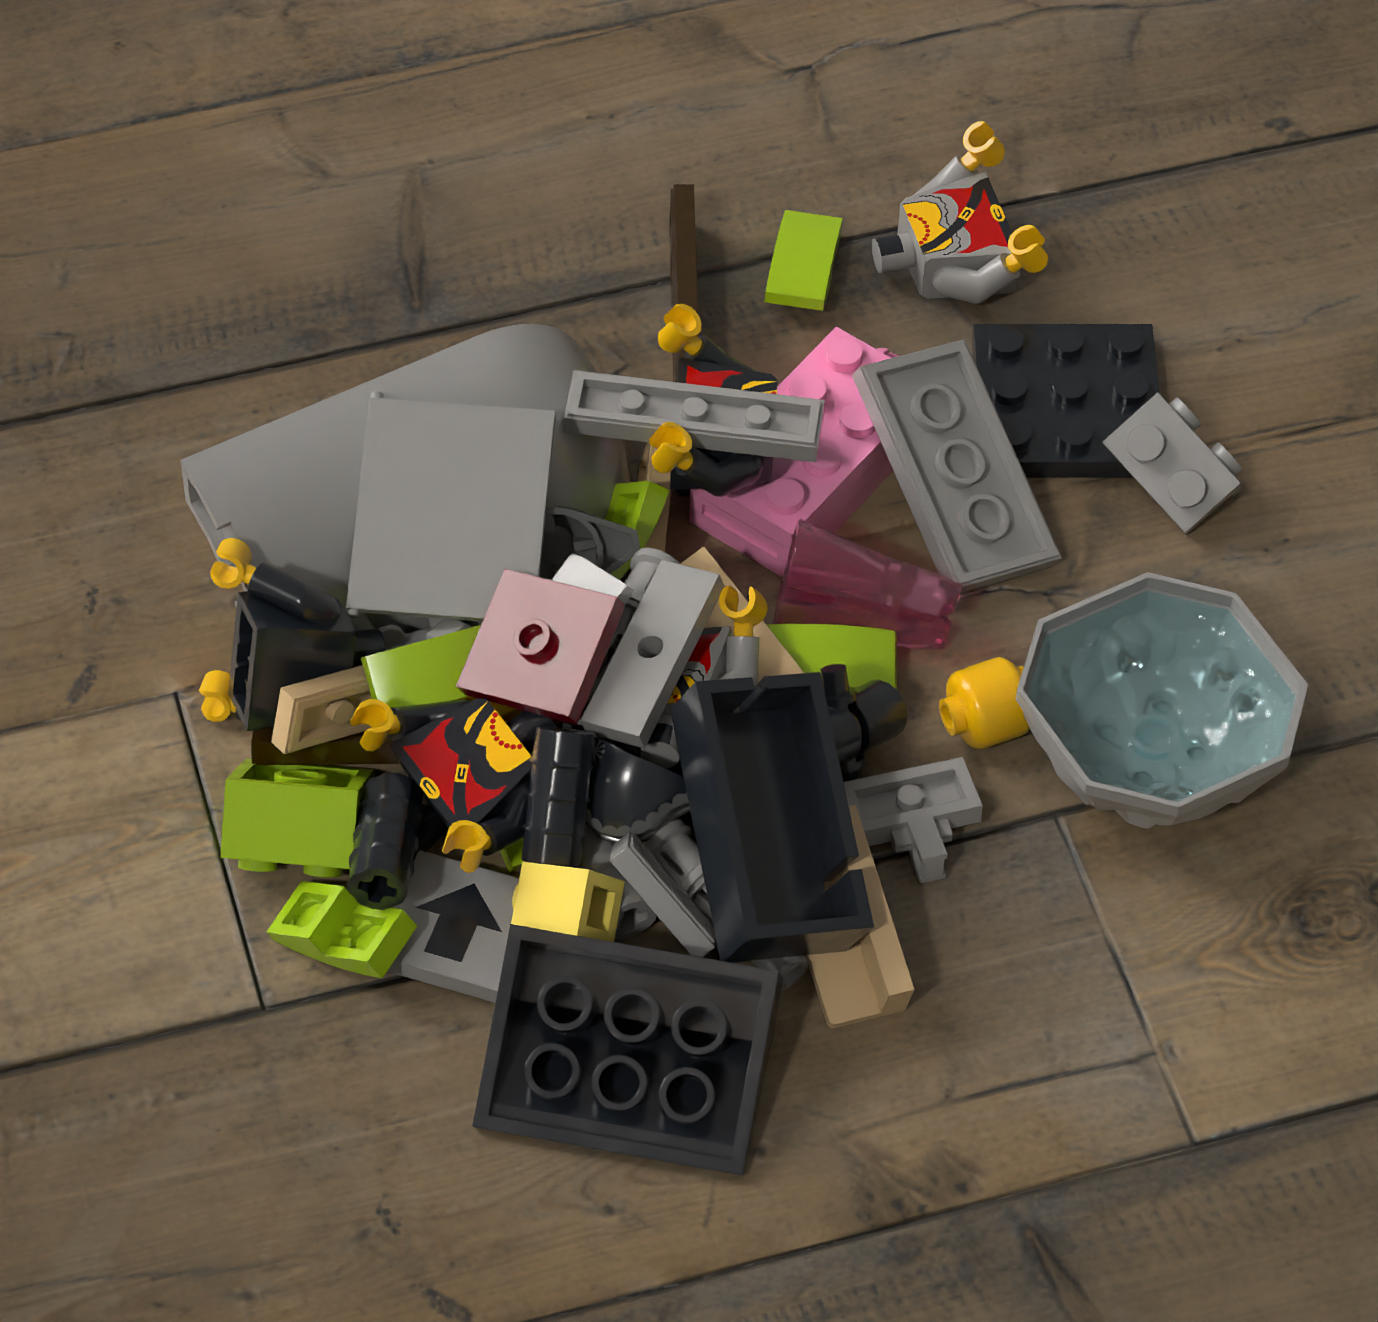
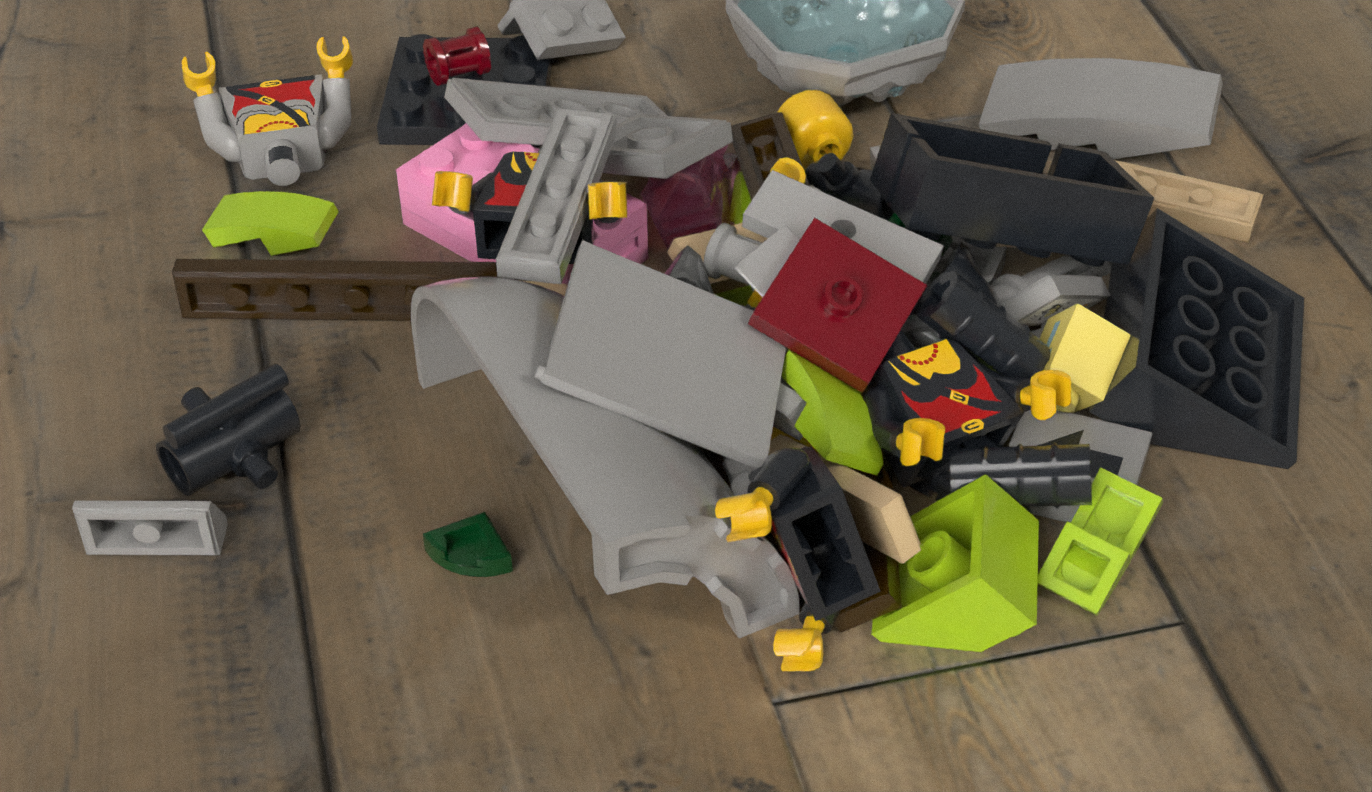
camera: 85 degrees left, 10 degrees down
(373, 241) = (150, 527): none -> light grey slope
(474, 270) = (229, 433): none -> black pin
(856, 518) = (664, 144): none -> light grey tile
(876, 641) = (759, 146): none -> dark brown tile
(921, 1068) = (1201, 203): none -> tan tile
(1064, 360) = (457, 56): none -> dark red bush
(1078, 996) = (1105, 101): none -> light grey slope

